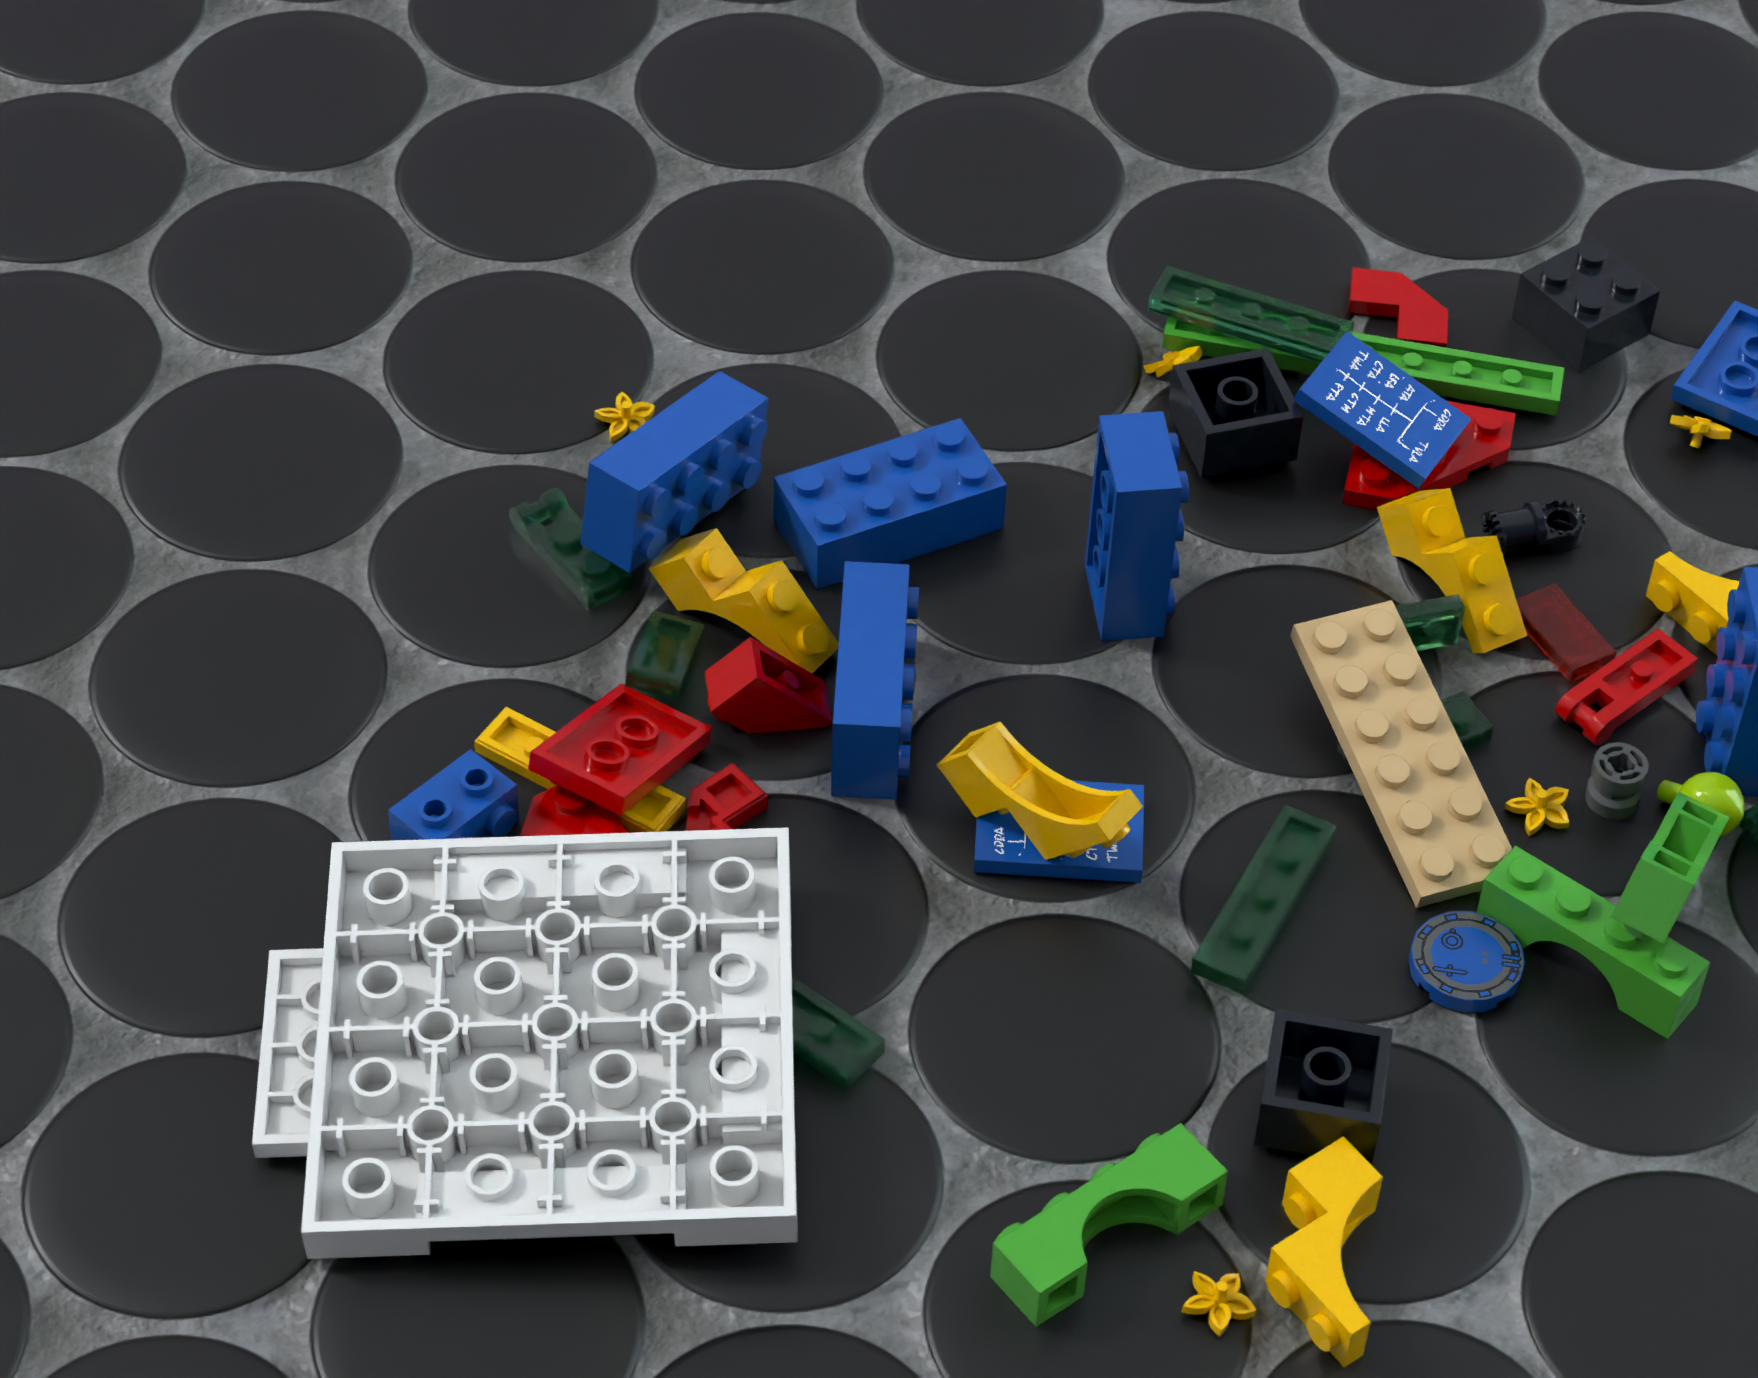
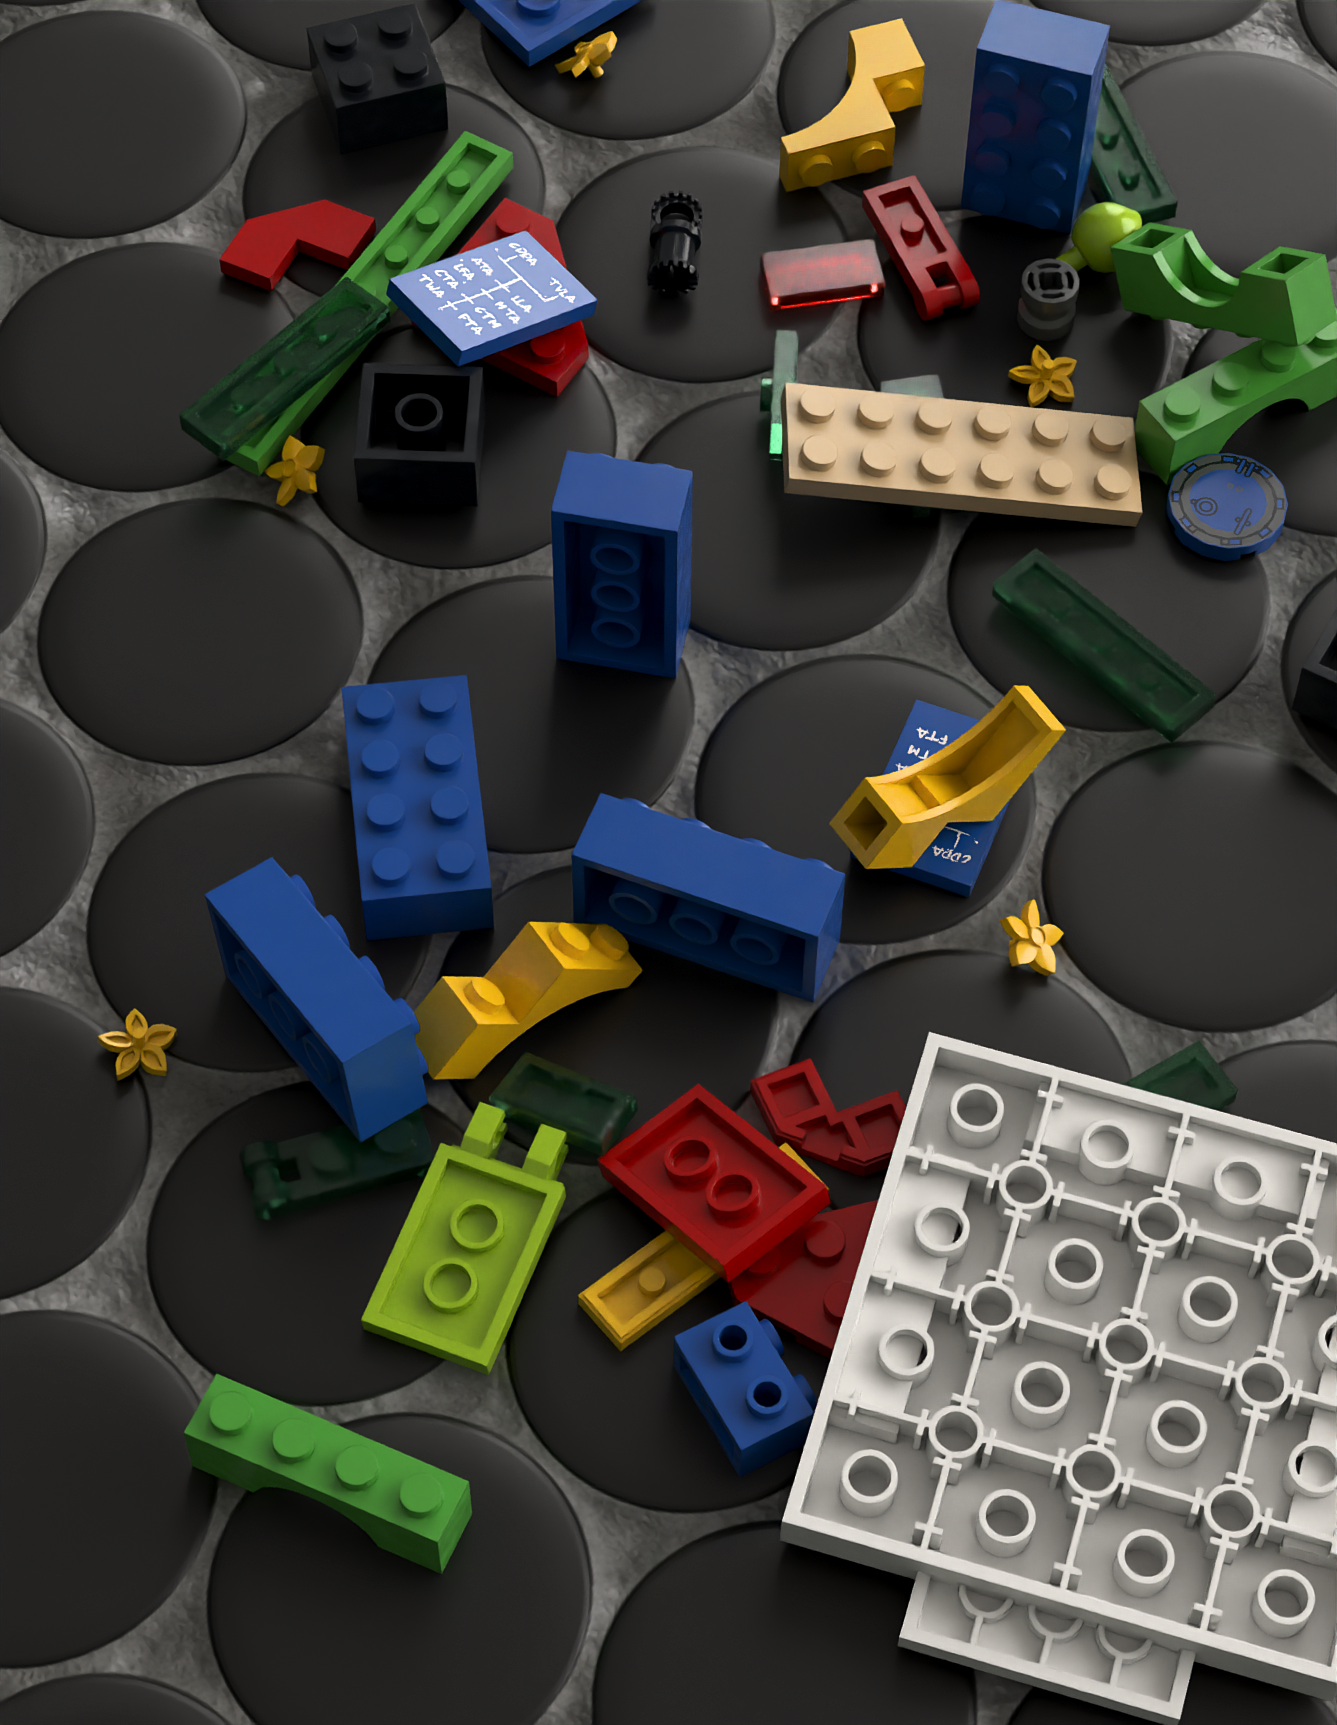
camera: 70 degrees left, 10 degrees up
(293, 623) = (386, 1493): none -> bright green arch
(531, 634) = (470, 1245): none -> lime tile
(765, 691) = (664, 1018): red slope -> none
(941, 911) = (1030, 941): none -> yellow plant
(1430, 534) = (739, 309): yellow arch -> none

